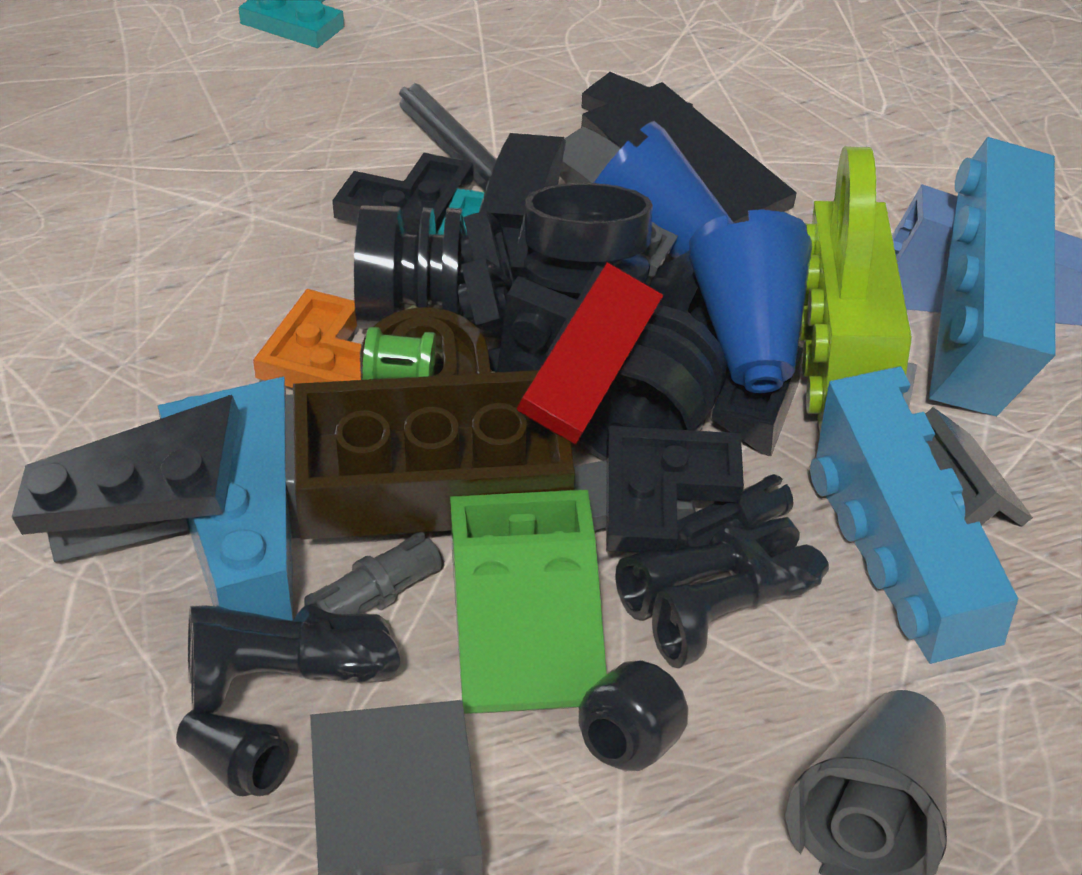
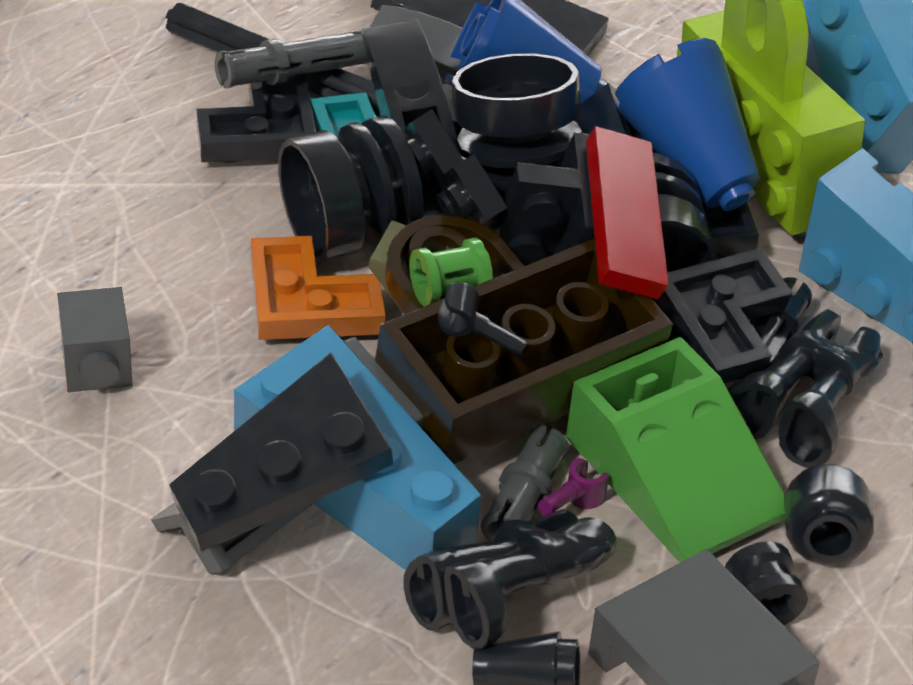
camera: 30 degrees left, 0 degrees up
(112, 332) = (95, 339): none -> dark grey brick
(363, 392) = (460, 316): none -> black hand
(427, 599) = (577, 490): none -> magenta hand
(441, 146) = (279, 60): none -> dark grey pin
(514, 760) = (767, 574): none -> black wheel

